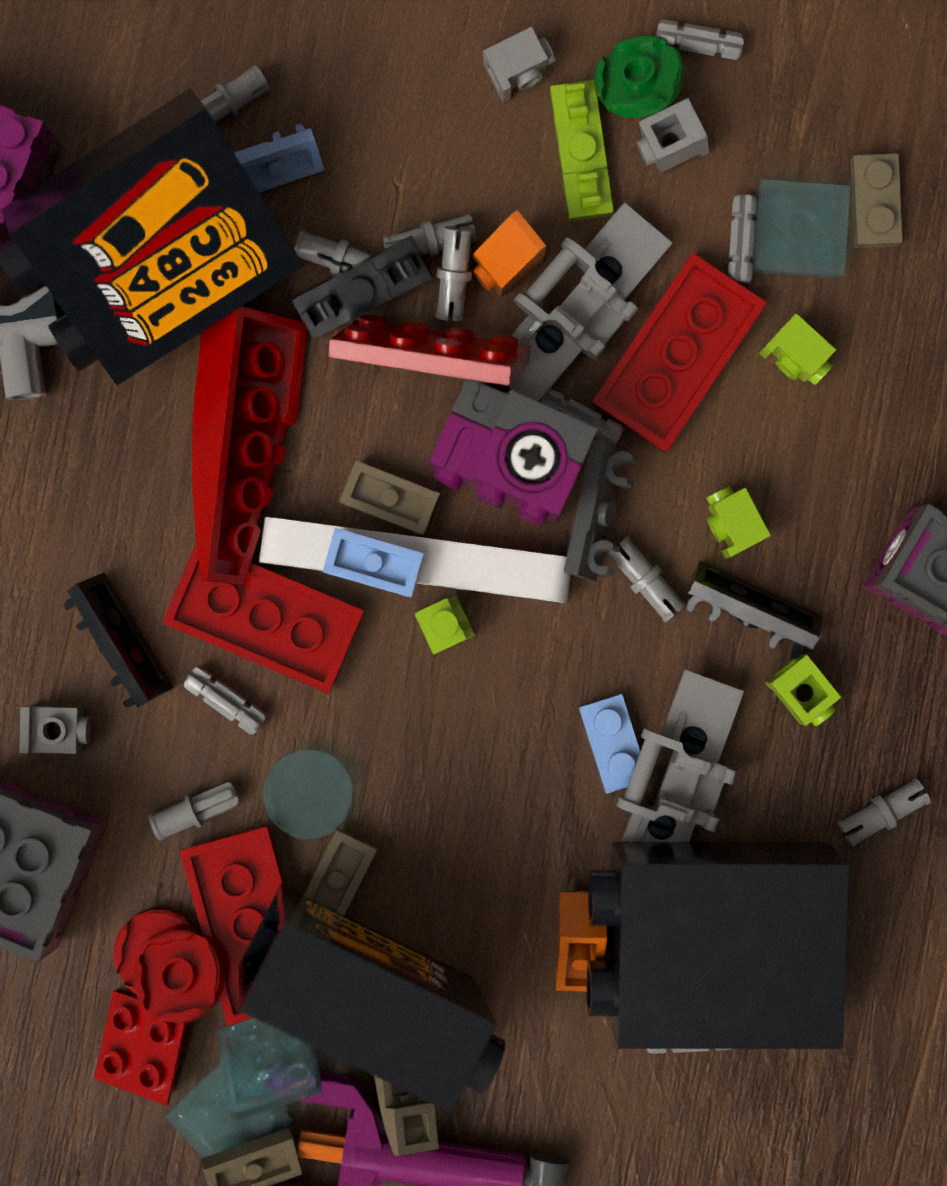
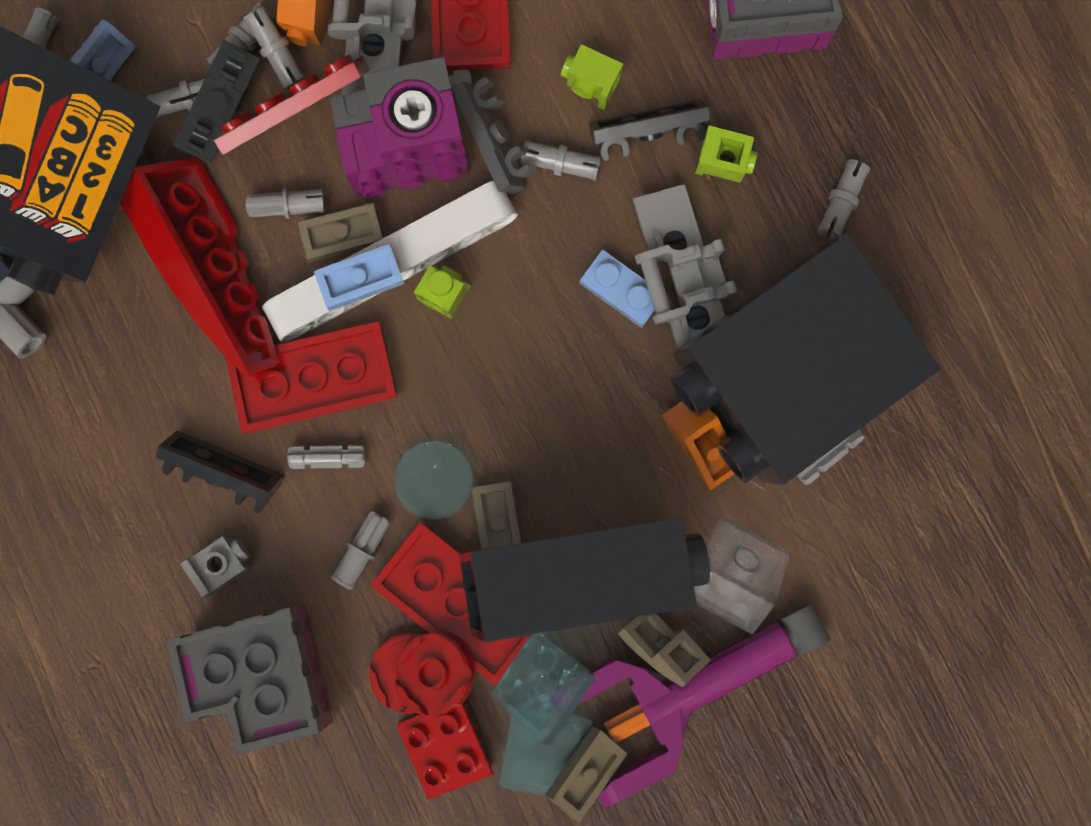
camera: 30 degrees left, 5 degrees down
(357, 431) = (285, 203): none -> light grey axle
(528, 1092) = (742, 575): none -> clear slope

